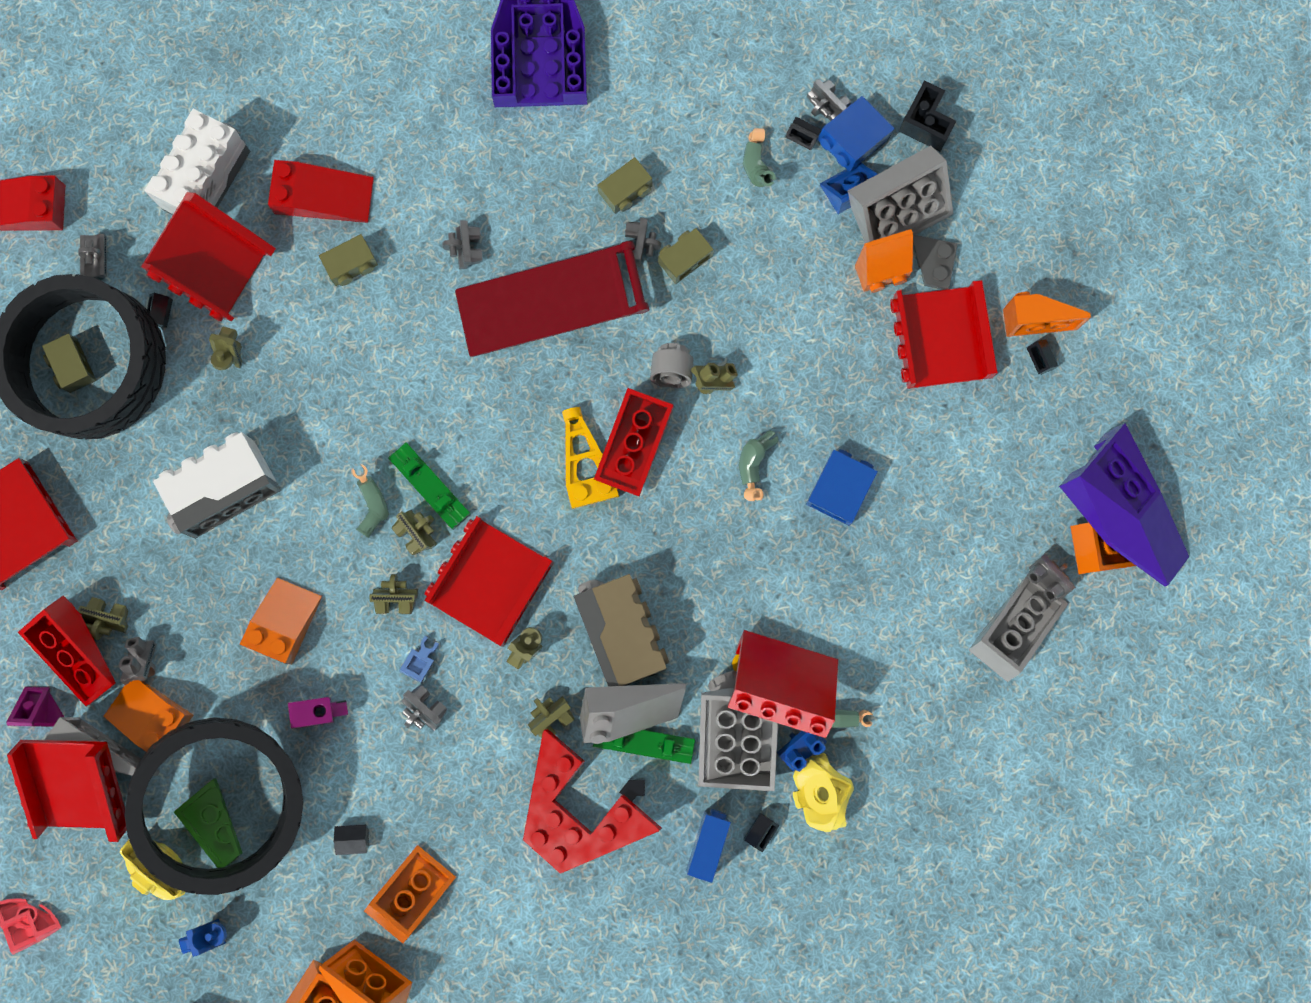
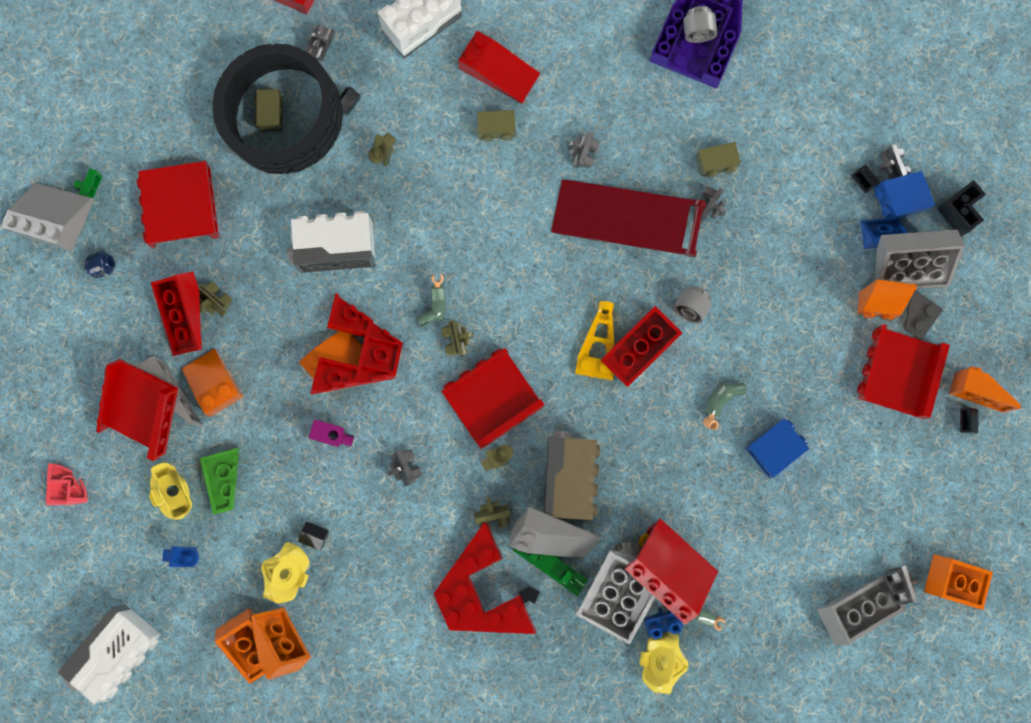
camera: 25 degrees right, 0 degrees up
(35, 708) = (138, 341): magenta slope -> none
(138, 663) = (223, 341): flat silver hips -> none
(205, 256) = (398, 77): red panel -> none
(237, 875) = (237, 523): black tyre -> none
(331, 595) = (378, 355): none -> red wing
(337, 899) = (277, 573): none -> light yellow piece
(383, 596) = (423, 376): olive hips -> none
(409, 894) = (337, 594): orange slope -> none
(417, 663) = (416, 434): medium blue plate -> none
(429, 486) = (481, 311): green hinge -> none
(533, 39) = (700, 25): none -> light grey piece
(685, 255) = (739, 229): olive brick -> none
(708, 845) = (564, 661): blue brick -> none
(714, 377) = (720, 326): olive hips -> none
(754, 167) = (818, 186): sand green arm -> none
(761, 832) = (605, 669): black piece -> none
(1127, 506) = (984, 559): dark purple wedge -> none

